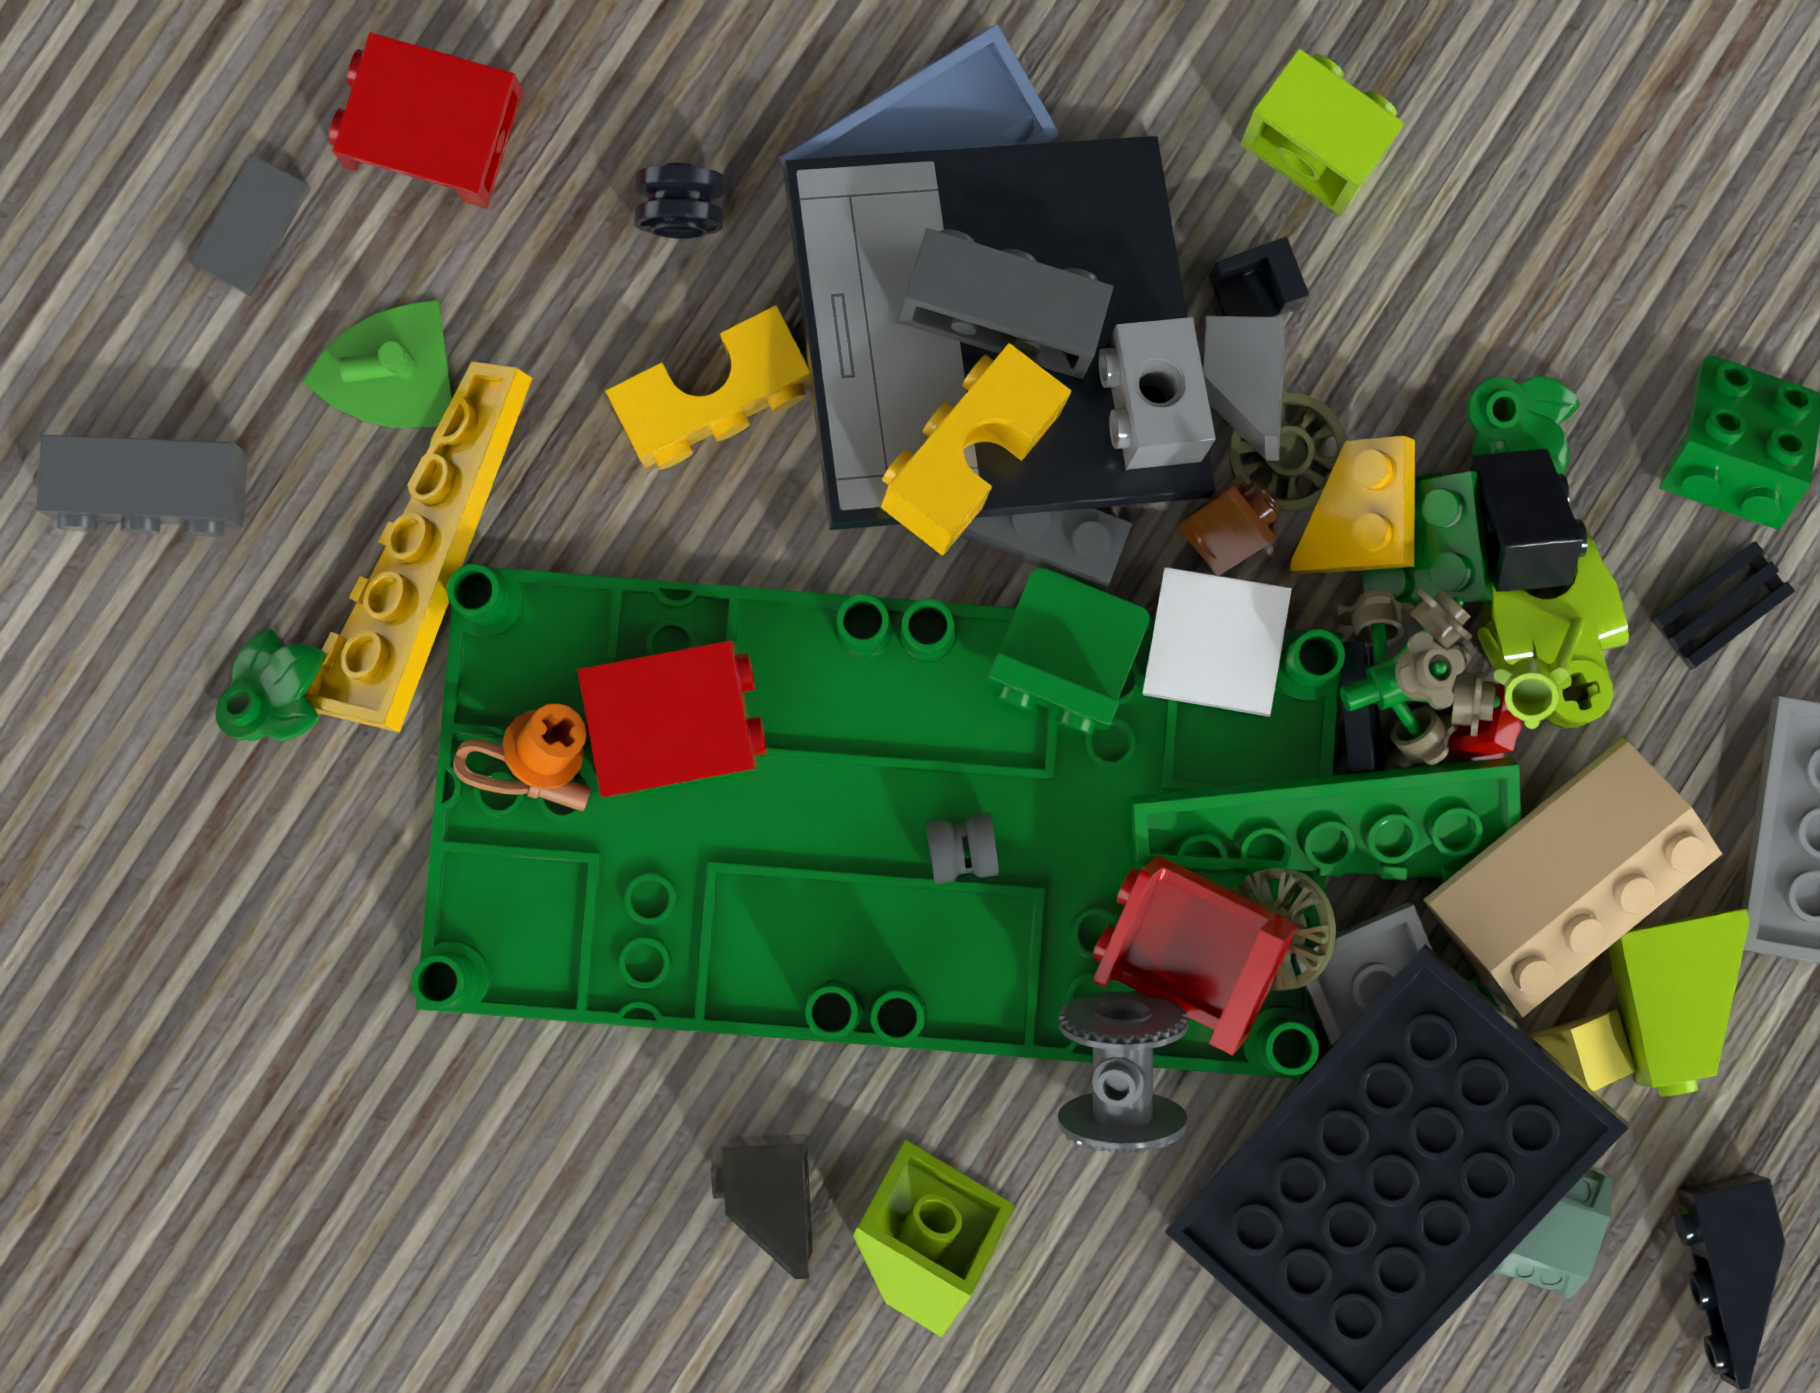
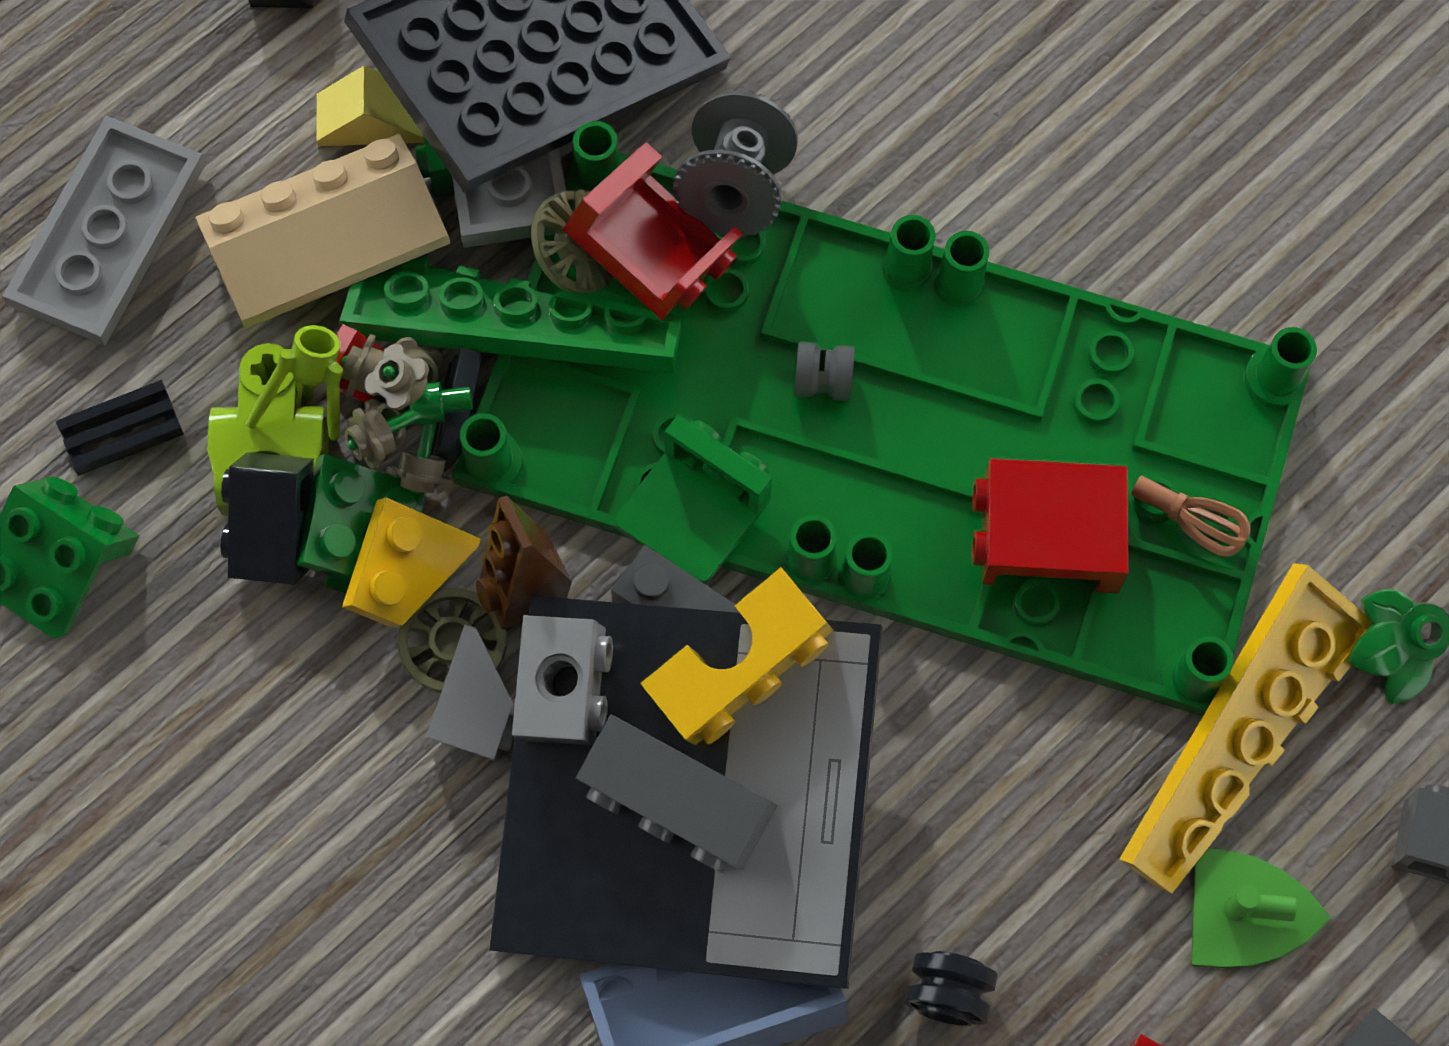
camera: 170 degrees left, 15 degrees down
(545, 746) = (1167, 529): orange piece -> none
(763, 373) = (1004, 793): yellow arch -> none
(769, 1195) = (1047, 142): clear smoke slope -> none
(929, 1237) = (918, 93): lime slope -> none
(1217, 641) = (566, 483): white tile -> none
(1260, 282) = (435, 790): black panel -> none
(1321, 130) = (335, 891): lime brick -> none
(1531, 419) = (237, 610): green plate -> none
(1678, 995) = (262, 133): lime slope -> none

